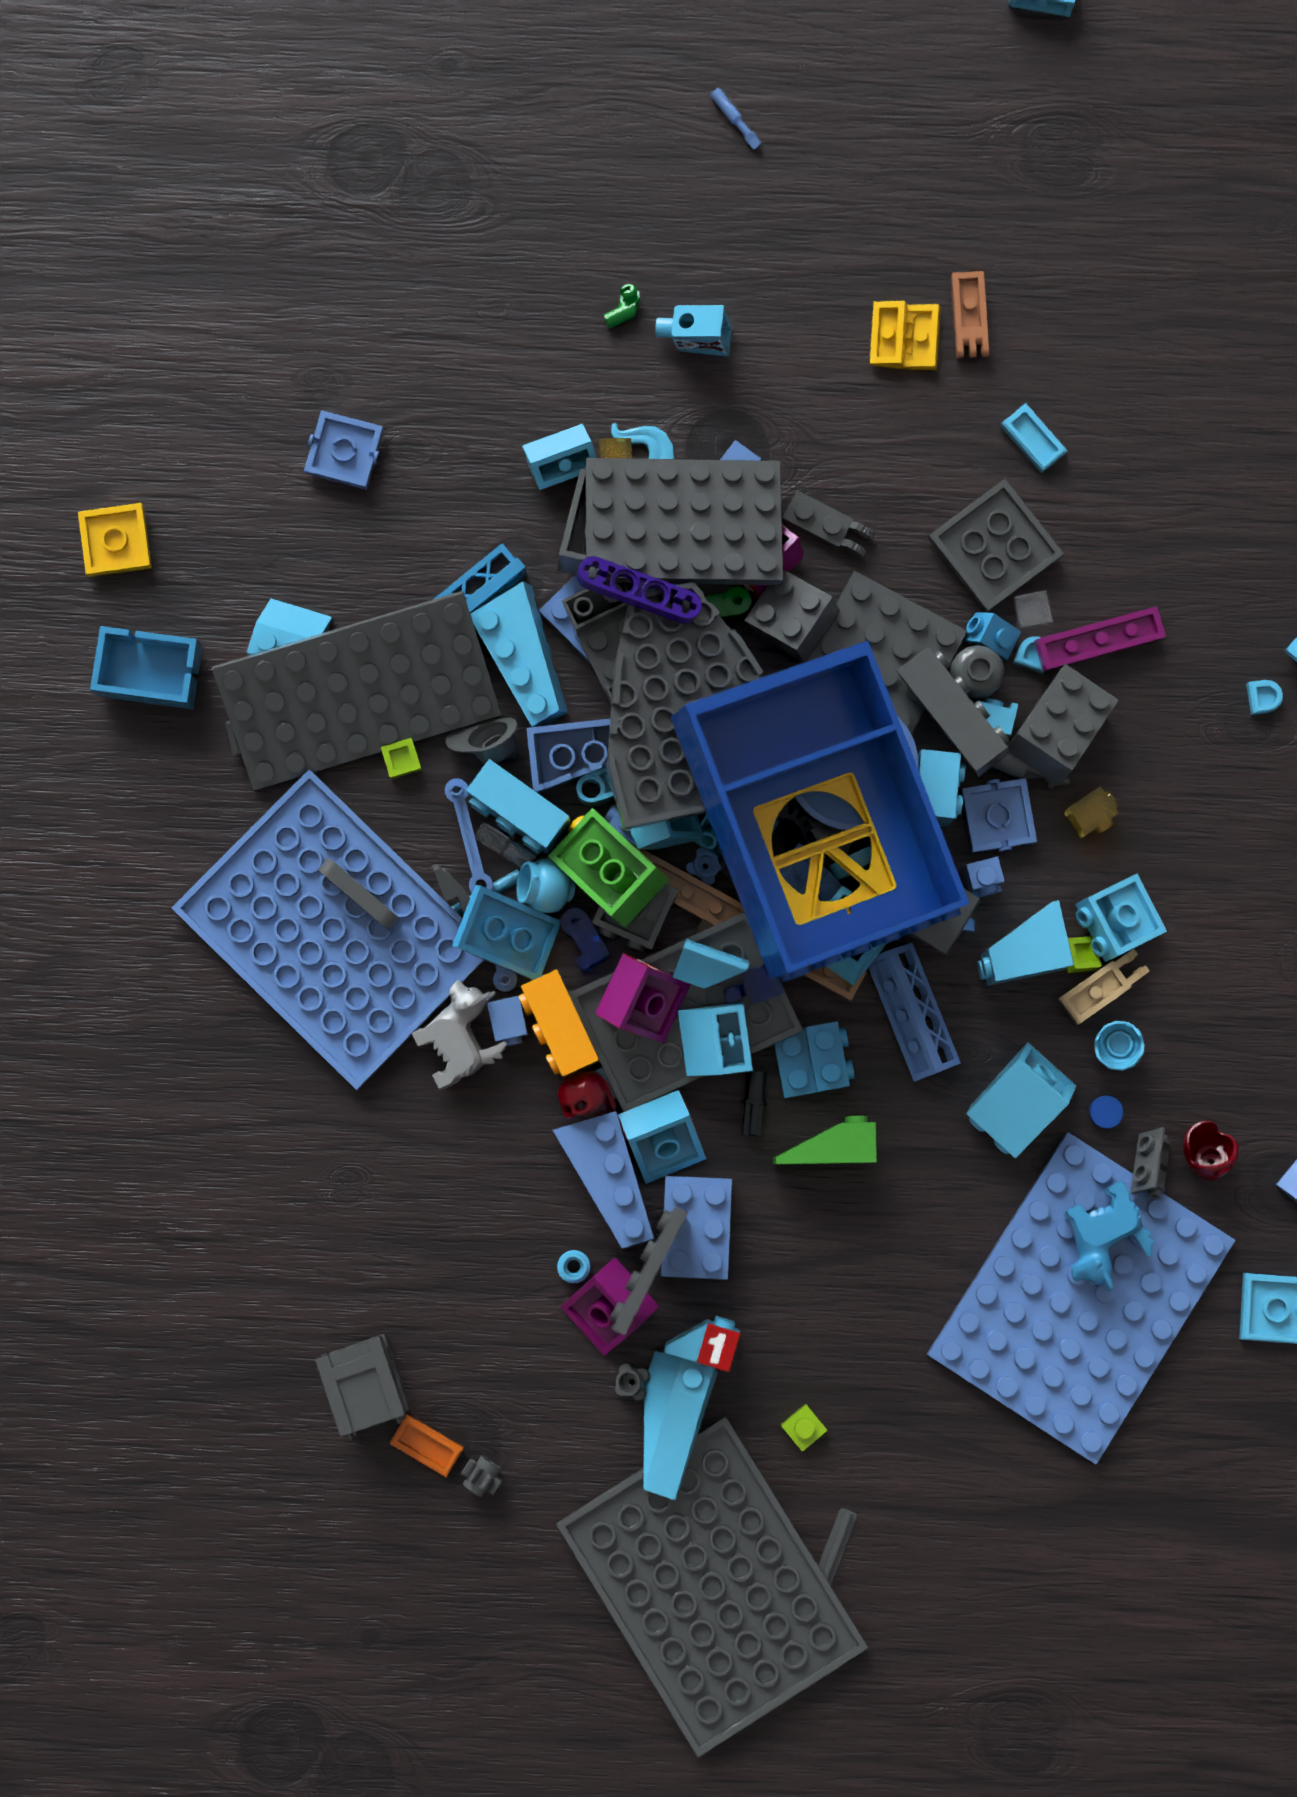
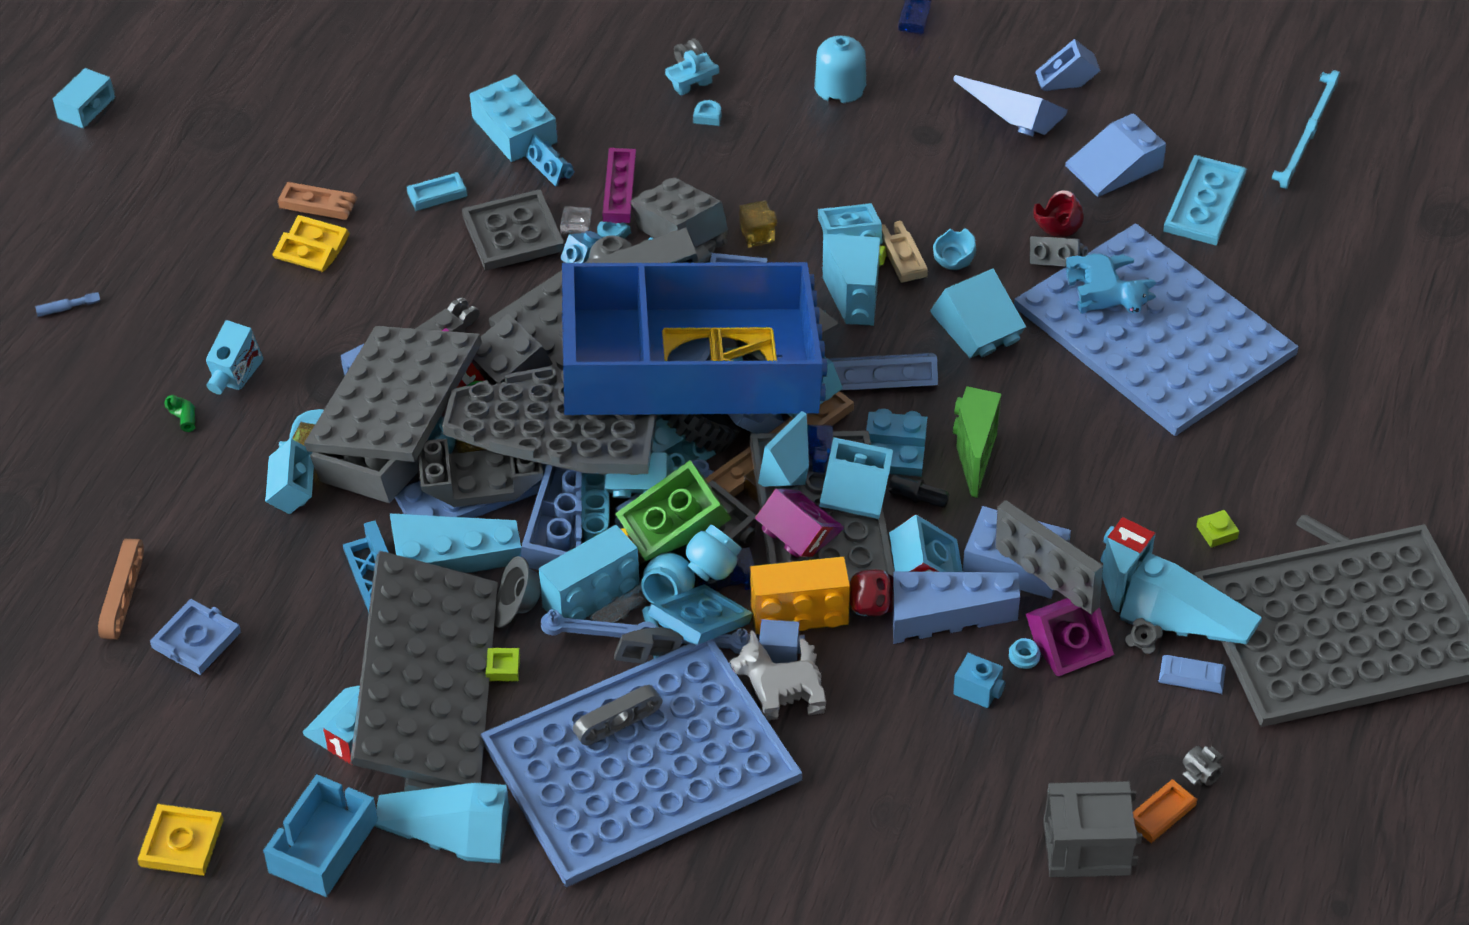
camera: 70 degrees left, 35 degrees down
(210, 778) = (456, 818): none -> medium azure wedge
(377, 352) = (121, 589): none -> nougat beam
(520, 1231) = (979, 680): none -> dark azure brick
(571, 924) = (712, 554): none -> medium azure piece
(604, 1440) = (1192, 674): none -> medium blue tile
(640, 584) = (418, 434): dark purple beam -> none
(1105, 1112) = (1007, 274): blue tile -> none
(1127, 532) = (548, 161): none -> dark azure hinge
(1170, 479) = (511, 116): none -> medium azure brick

